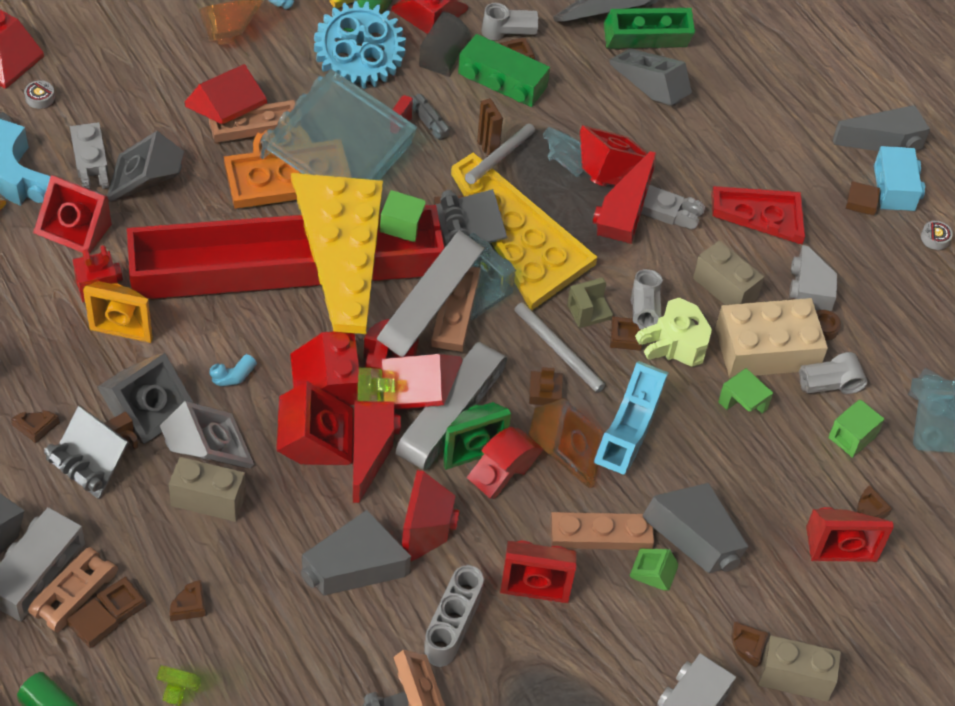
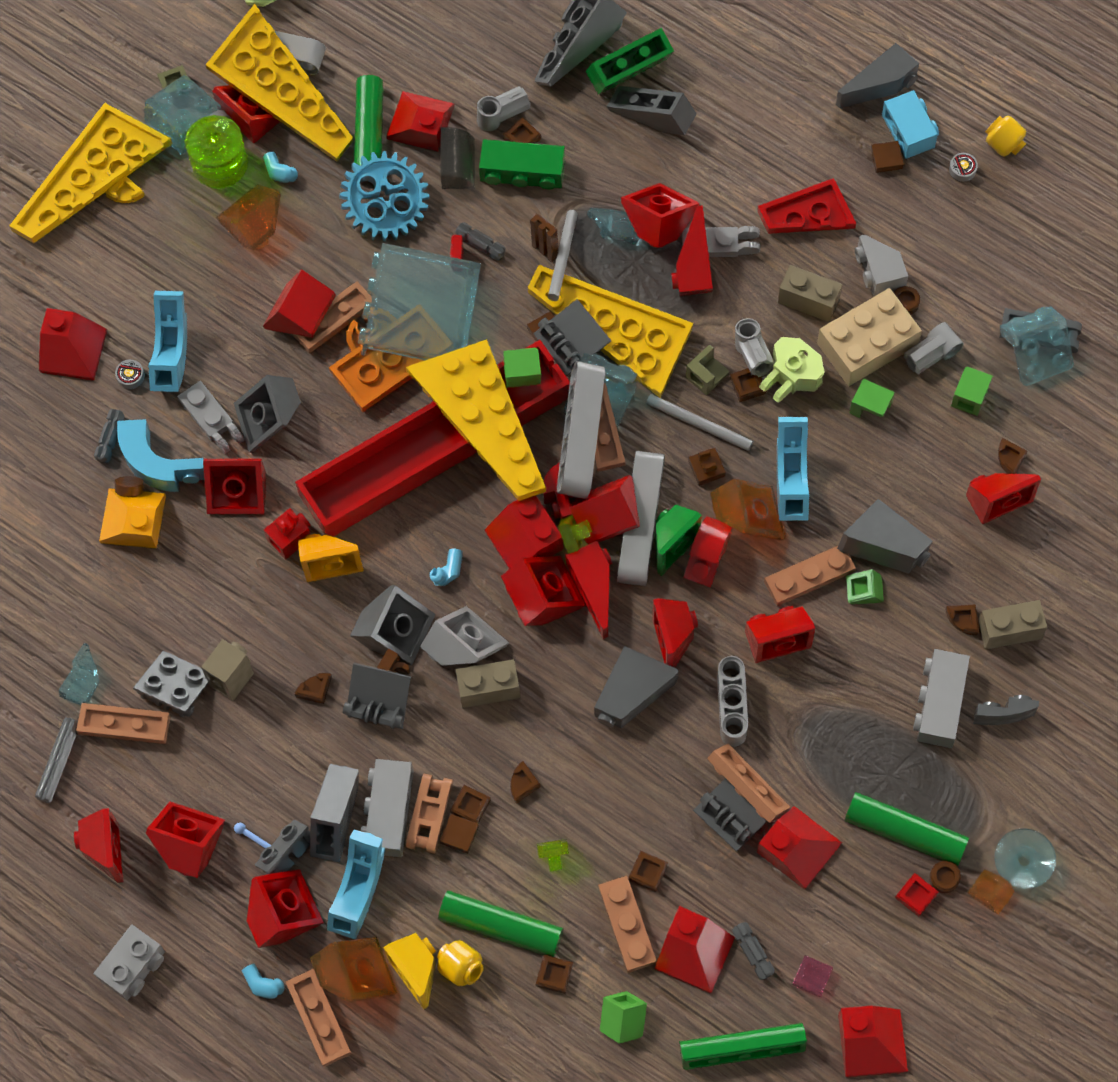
camera: 15 degrees left, 15 degrees up
(92, 81) = (170, 345): none -> medium azure arch

